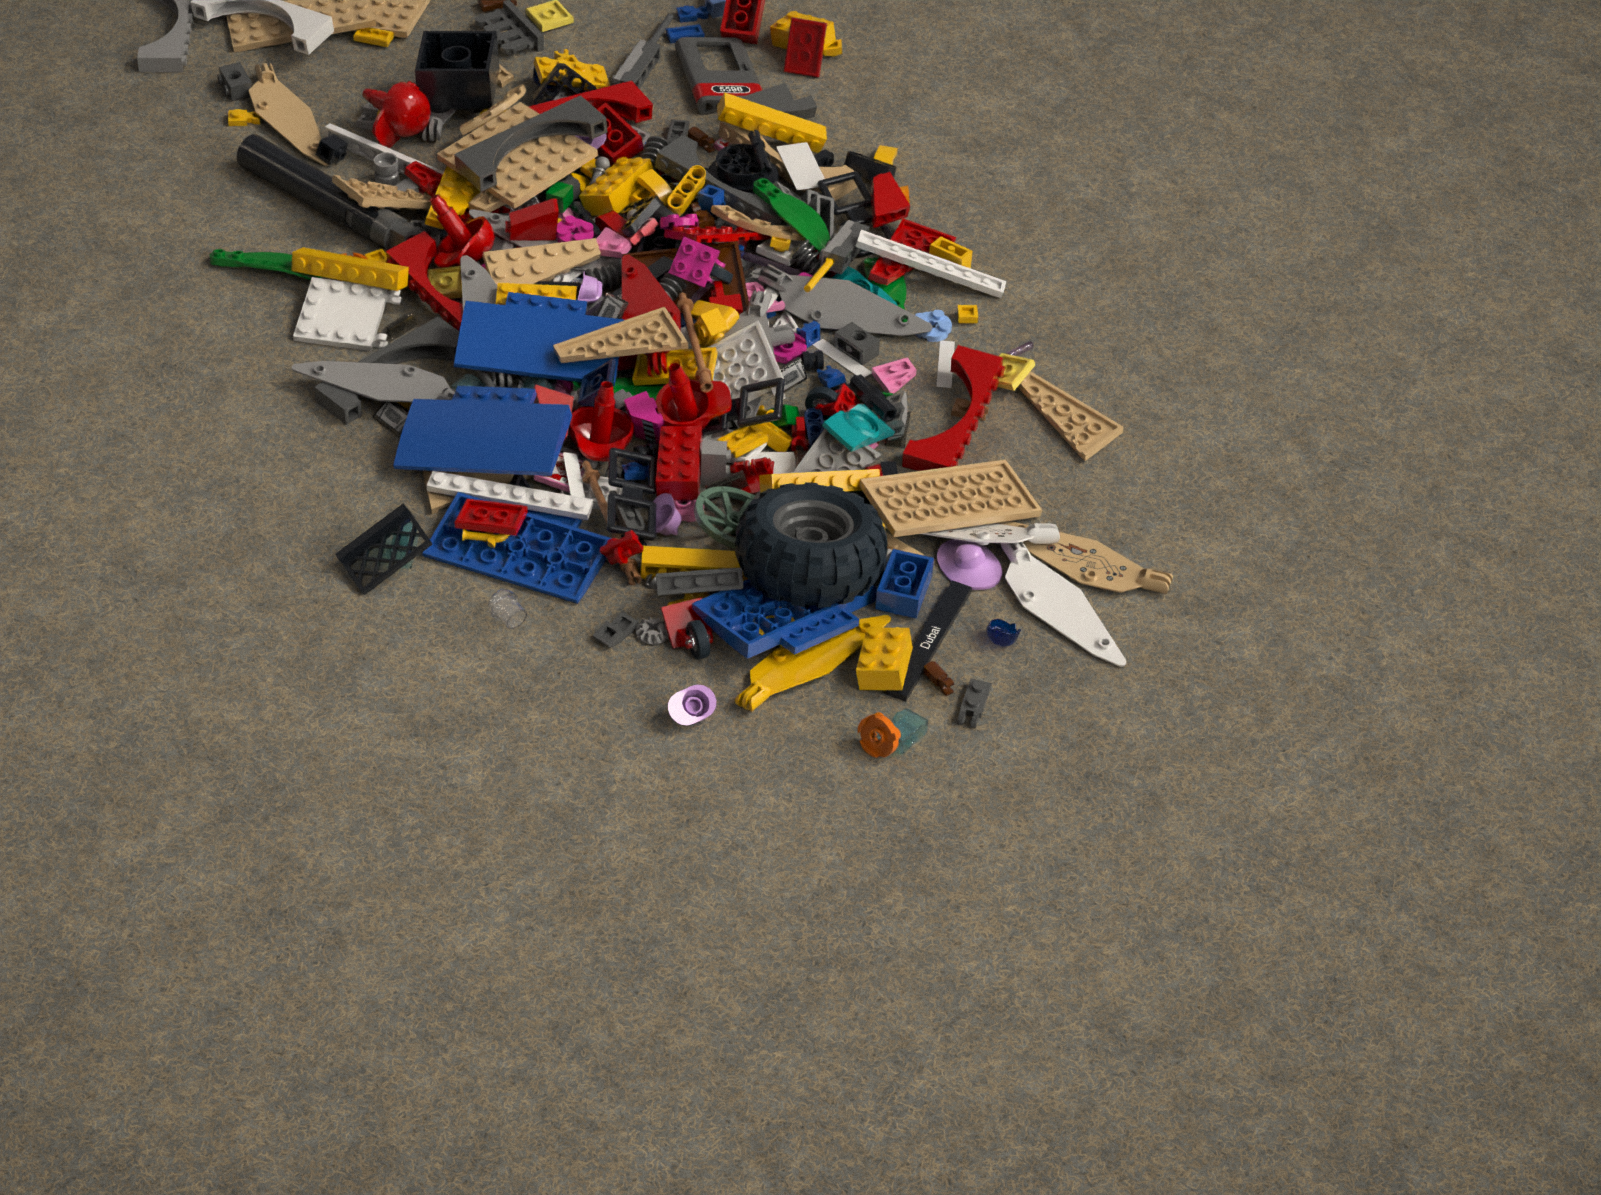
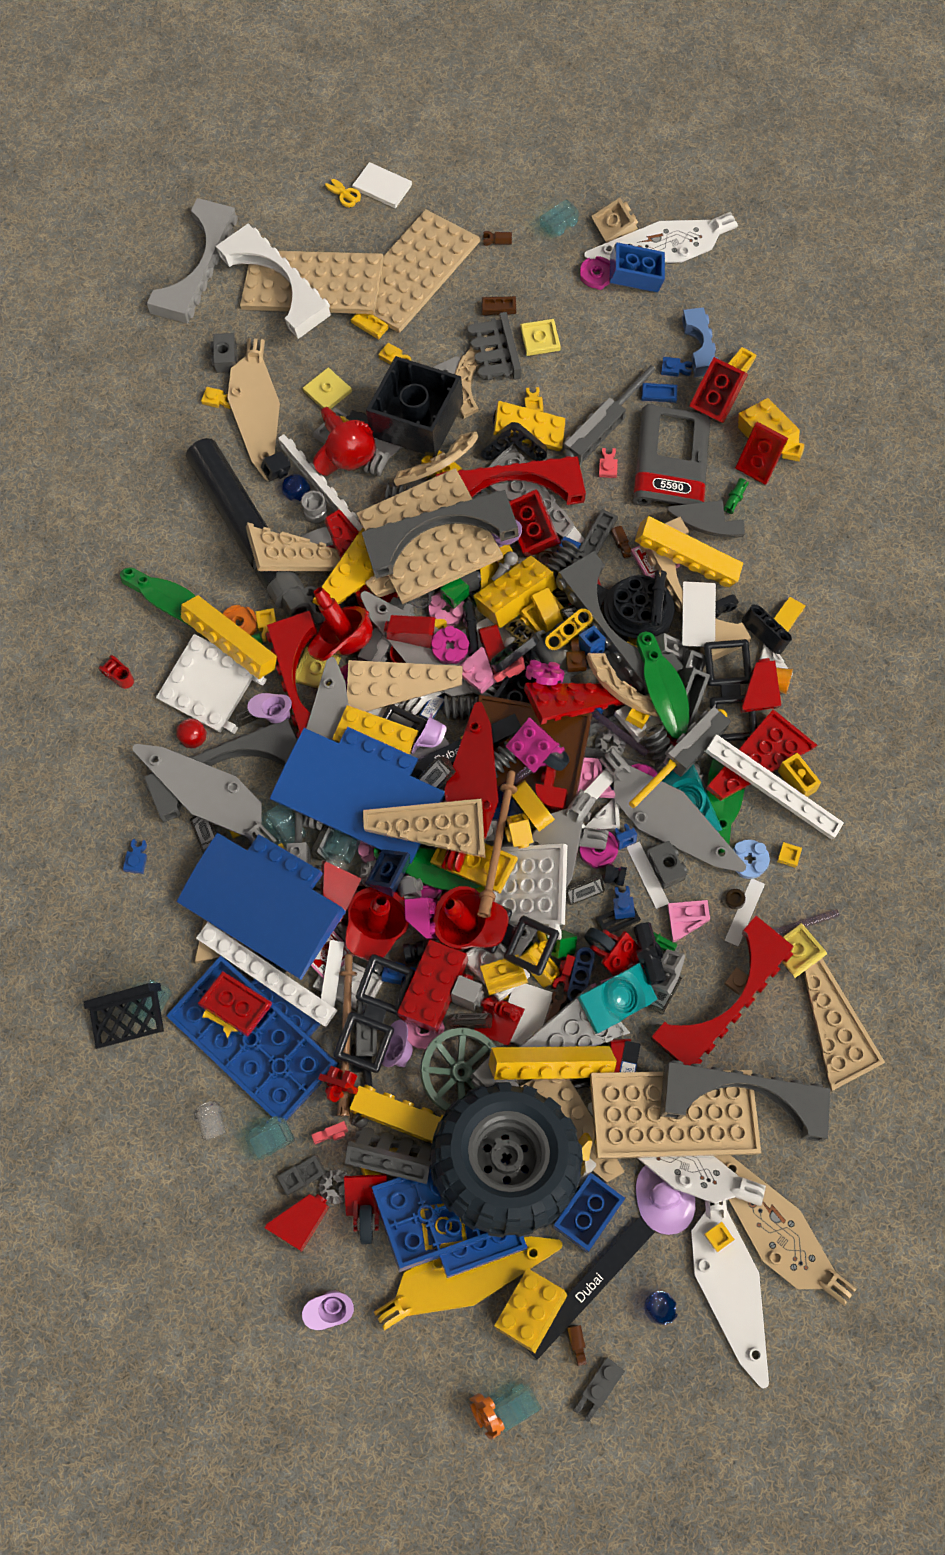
camera: 25 degrees right, 25 degrees up
(245, 326) = (115, 670): none -> red piece
(331, 453) = (135, 860): none -> blue plate
(342, 352) = (191, 733): none -> red hair
(350, 90) = (327, 389): none -> light yellow plate
(358, 162) = (295, 487): none -> clear blue hair
(406, 55) = (389, 352): none -> yellow plate
(421, 309) = (270, 706): none -> lavender piece
(572, 608) = (269, 1138): none -> clear light blue brick
(629, 659) = (299, 1221): none -> red slope
(632, 590) = (336, 1132): none -> coral plate
(660, 91) = (608, 465): none -> coral plate
(795, 85) = (735, 495): none -> green pin
(932, 355) = (735, 899): none -> dark brown tile
(1032, 569) = (719, 1237): none -> yellow plate
(1065, 468) = (803, 1103): none -> dark grey arch

